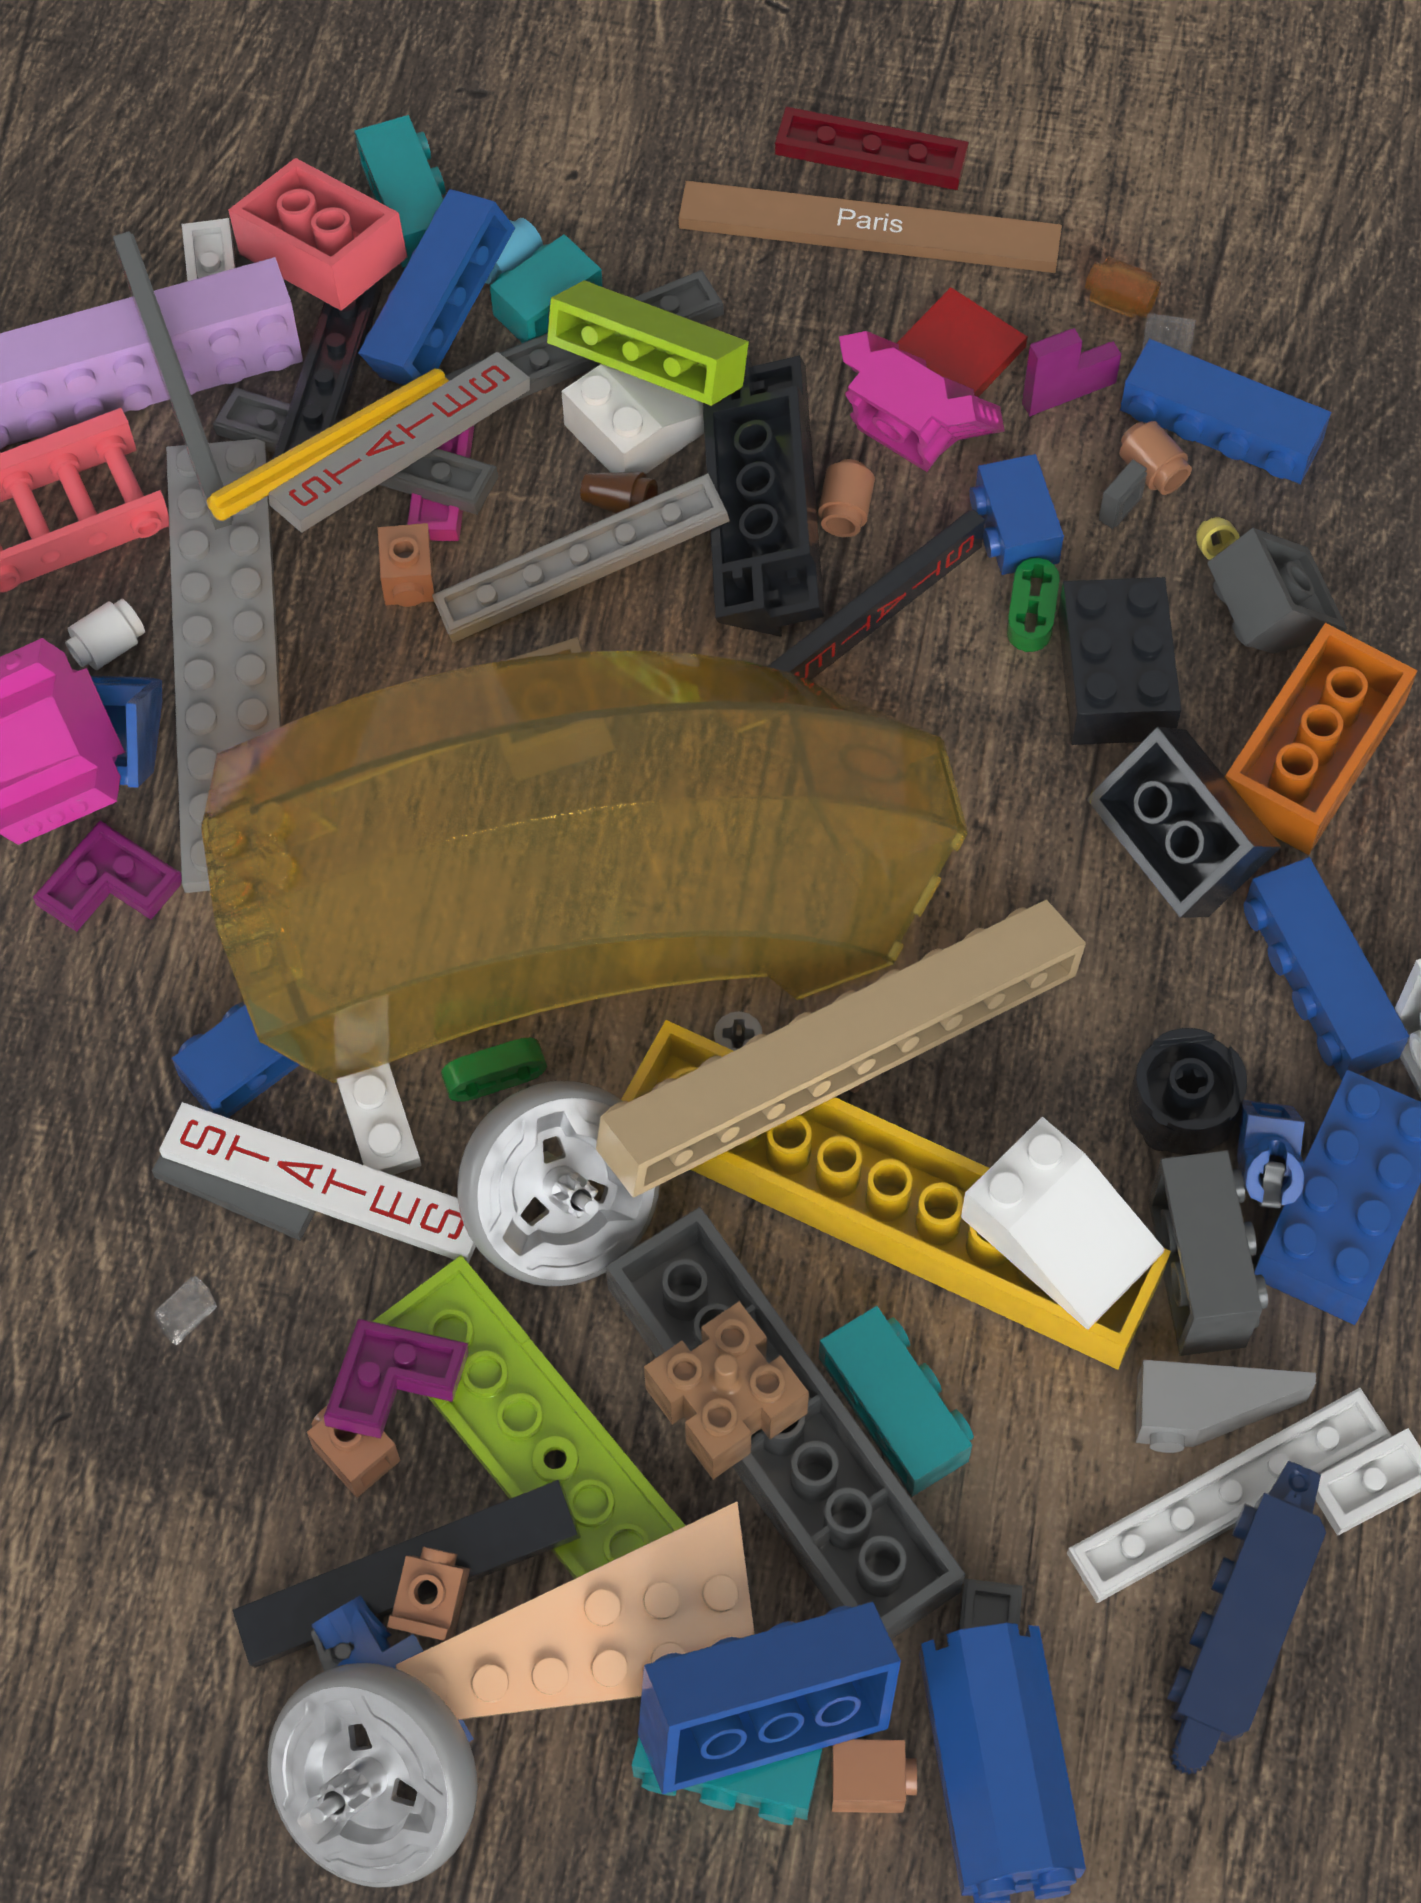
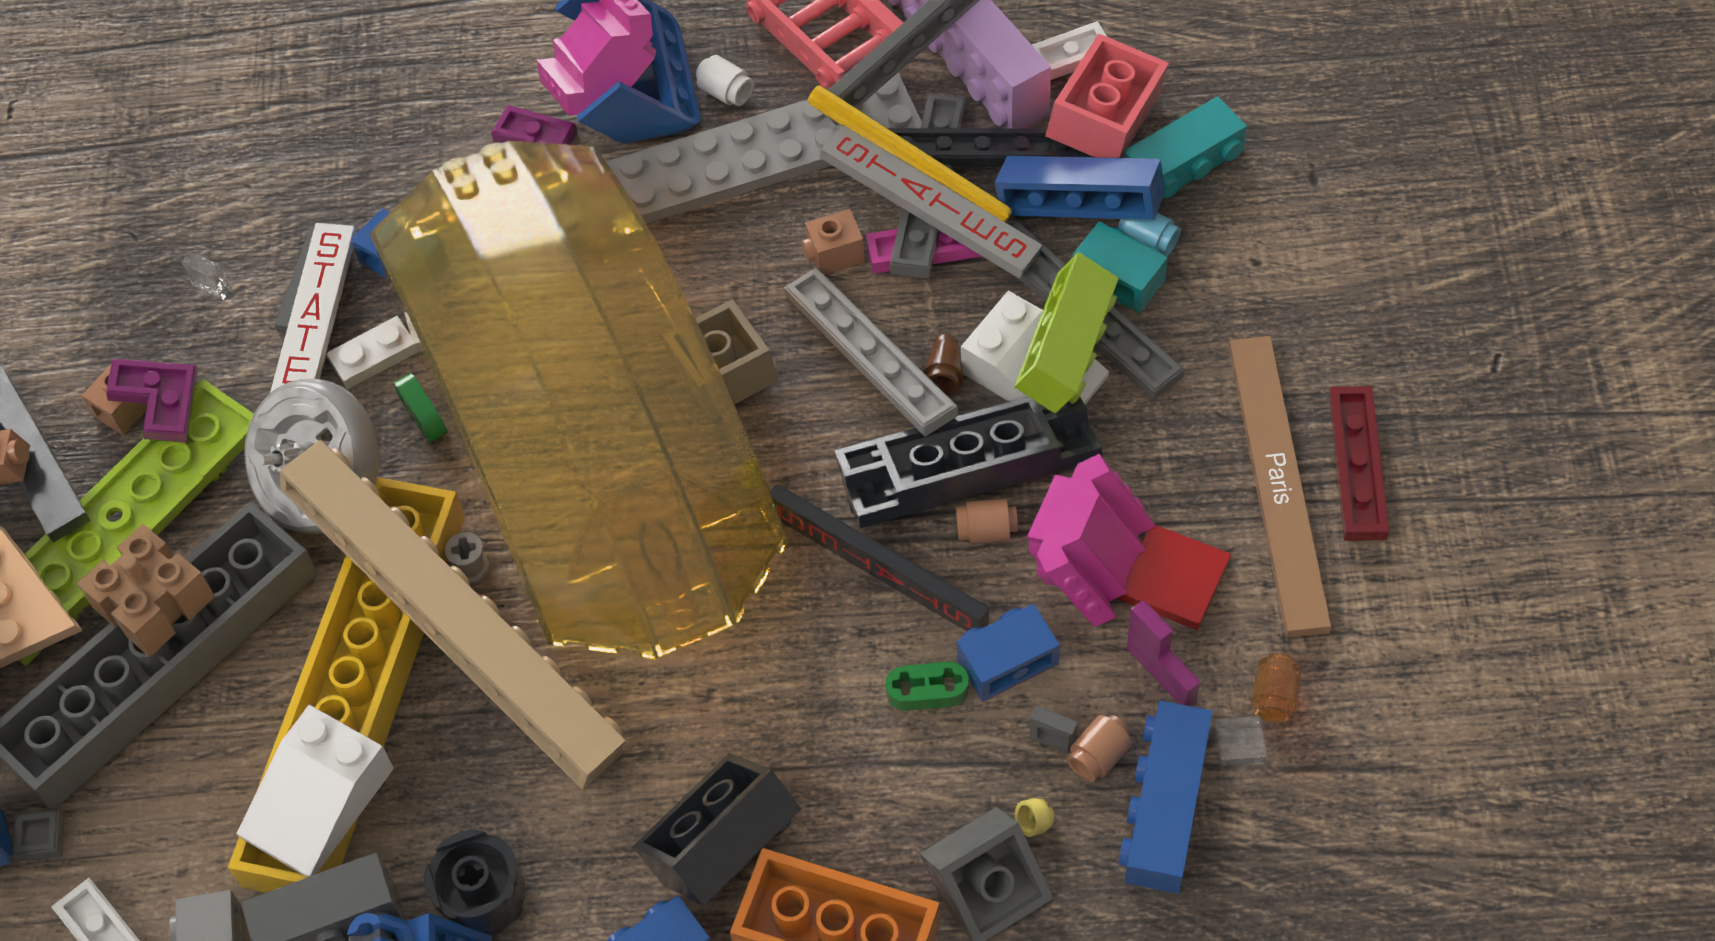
camera: 80 degrees right, 5 degrees down
(896, 1399) = (190, 729): teal brick -> none
(1118, 659) = (879, 756): black brick -> none

